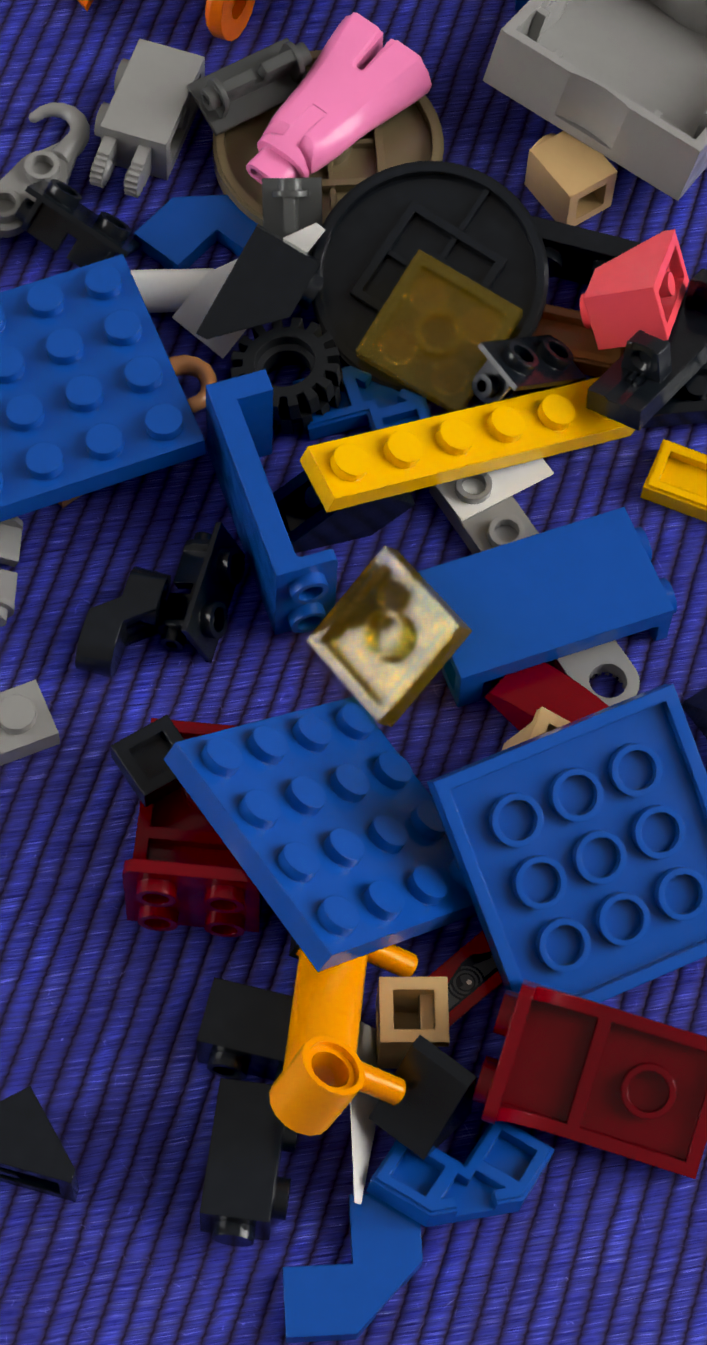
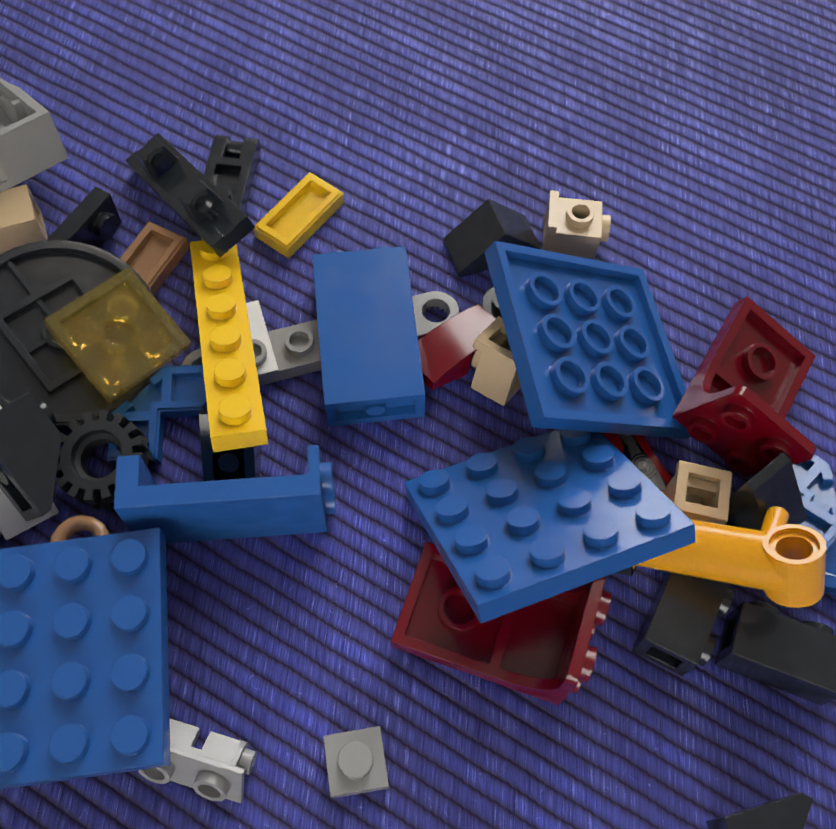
camera: 75 degrees left, 0 degrees up
(122, 621) = (296, 661): black piece -> none
(142, 761) = (443, 642): black plate -> none
(212, 570) = (298, 582): black hinge -> none
(388, 636) = (372, 437): clear yellow plate -> none
(524, 367) = (173, 282): black hinge -> none
(636, 292) = (141, 198): coral slope -> none

